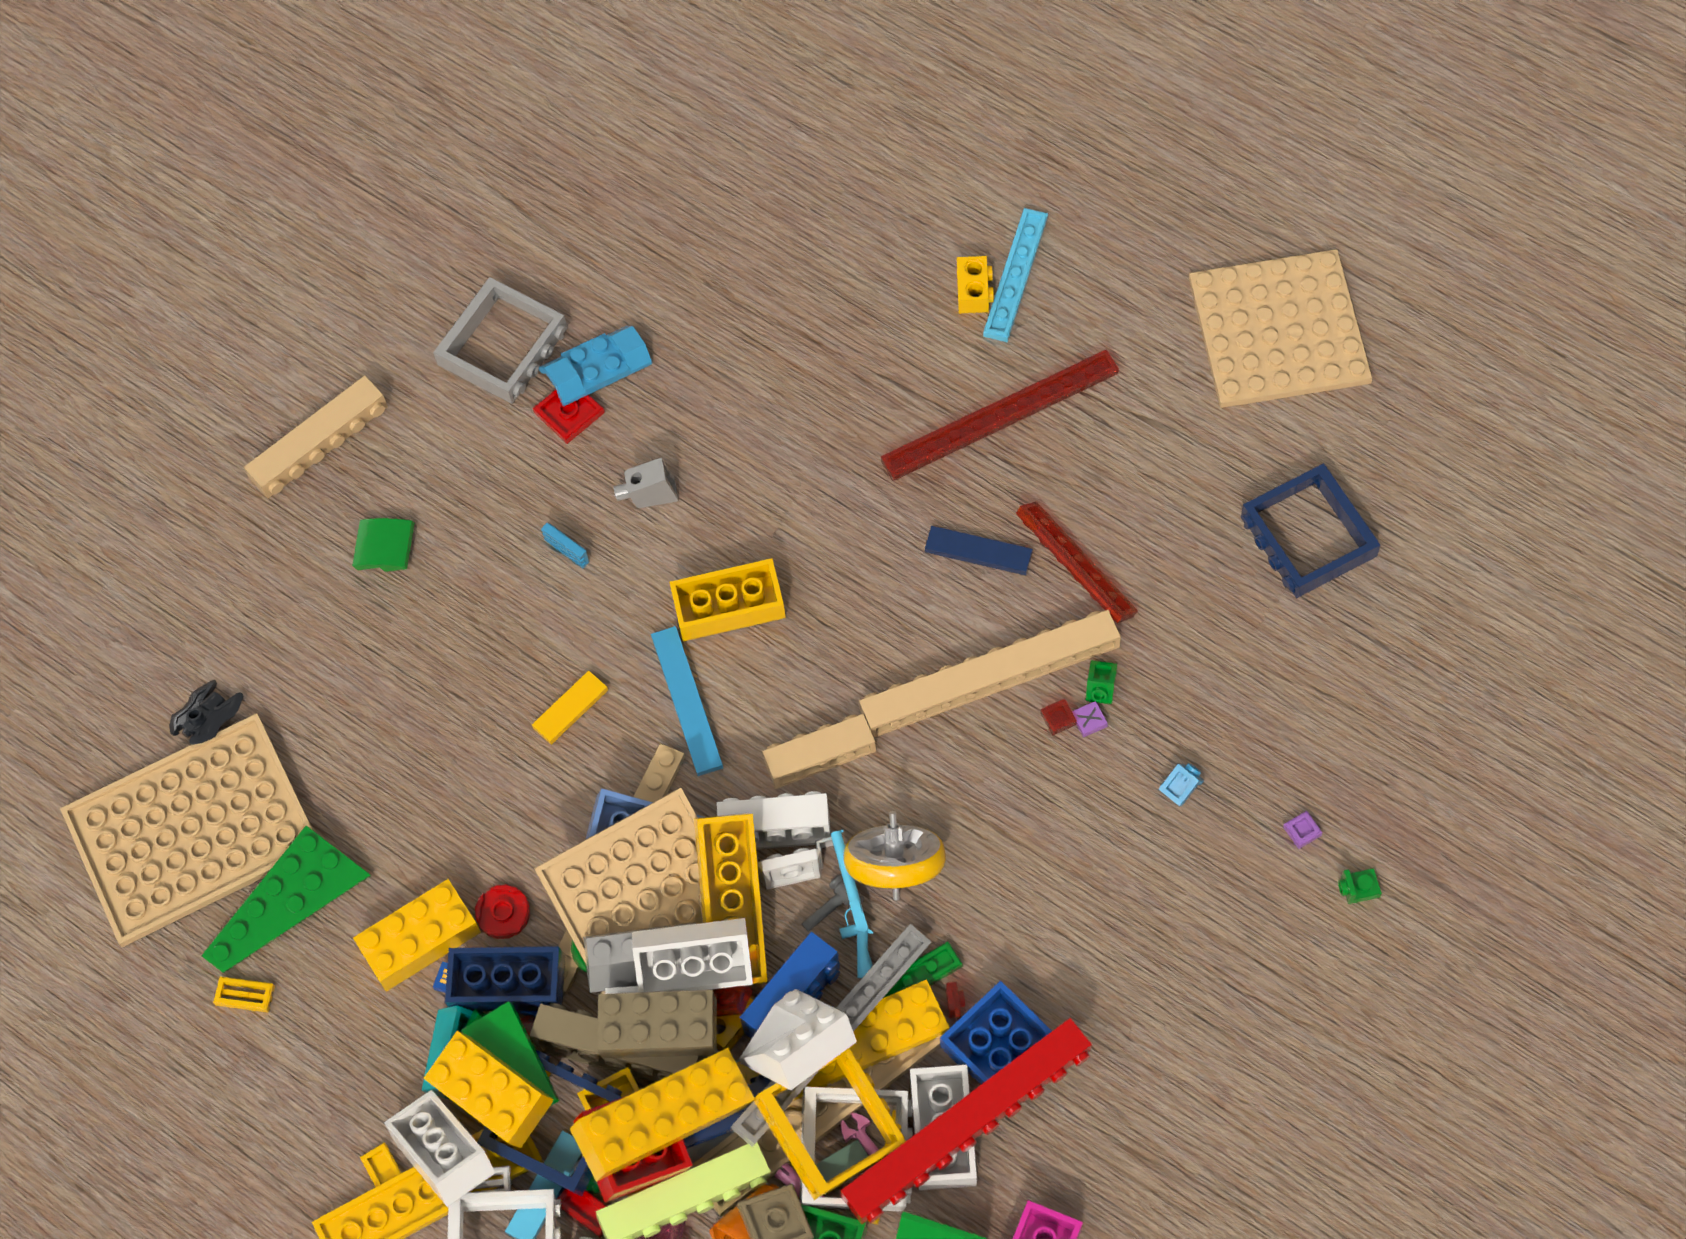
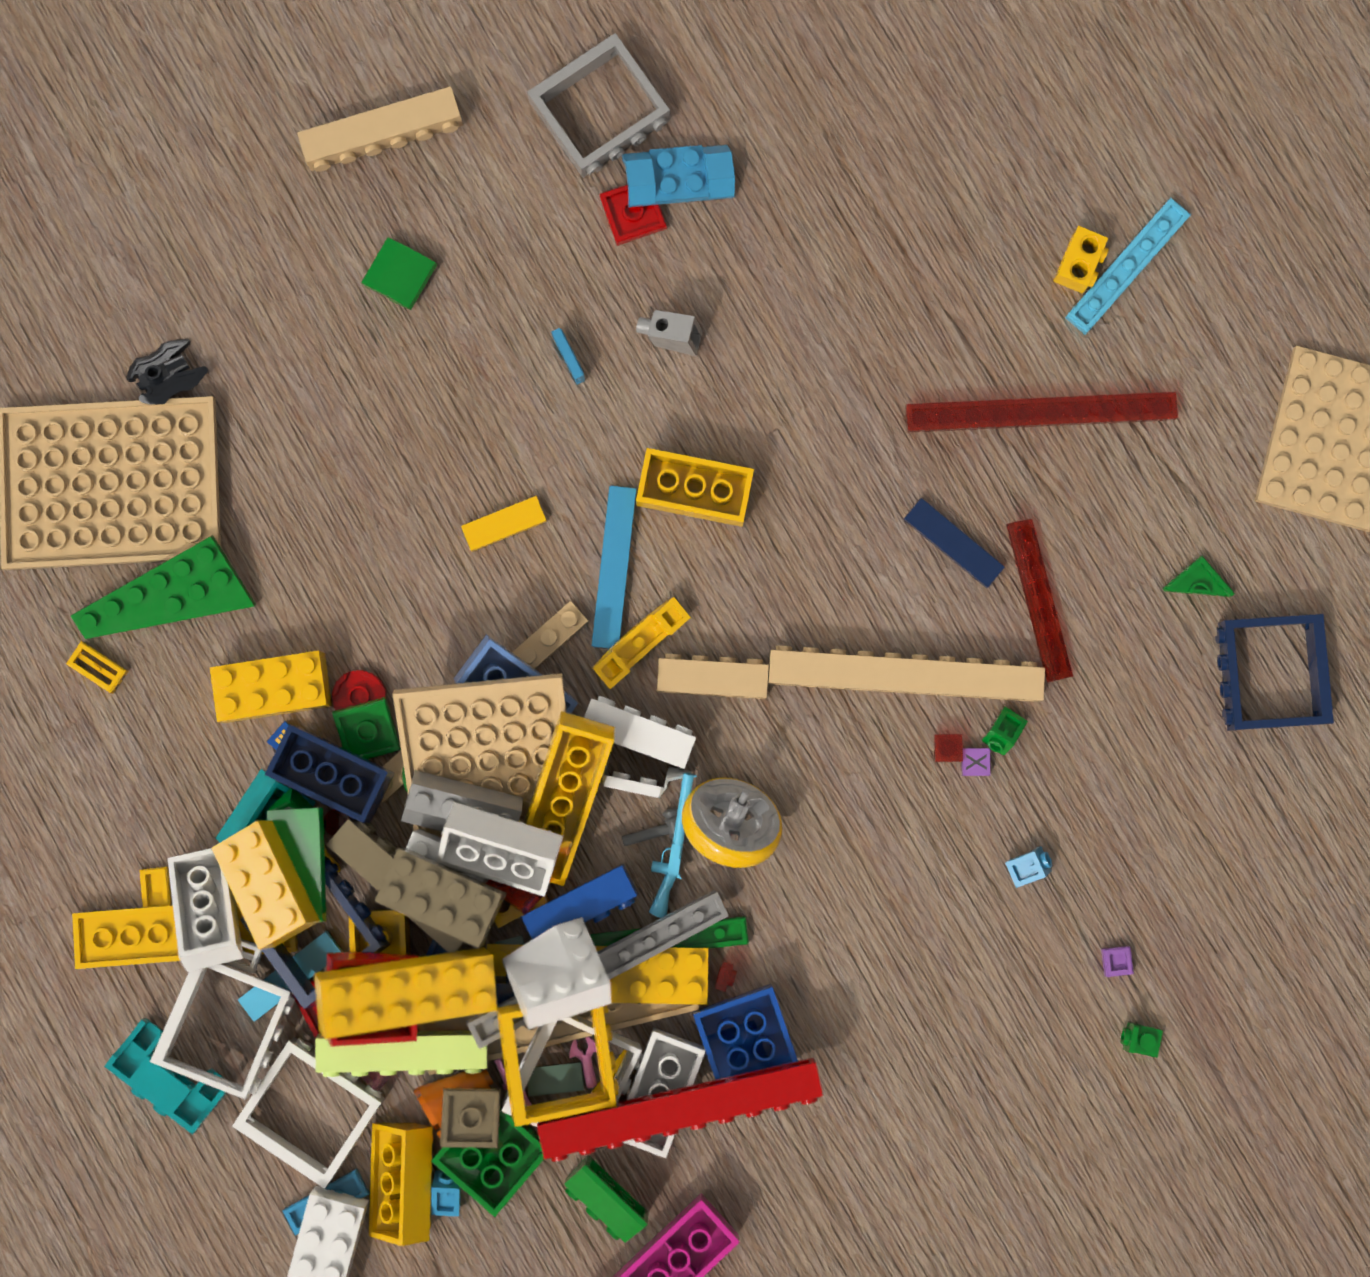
camera: 20 degrees right, 20 degrees up
(523, 927) = (367, 729): none -> green tile
(740, 747) = (639, 641): none -> yellow slope
(1206, 488) = (1199, 579): none -> green tile

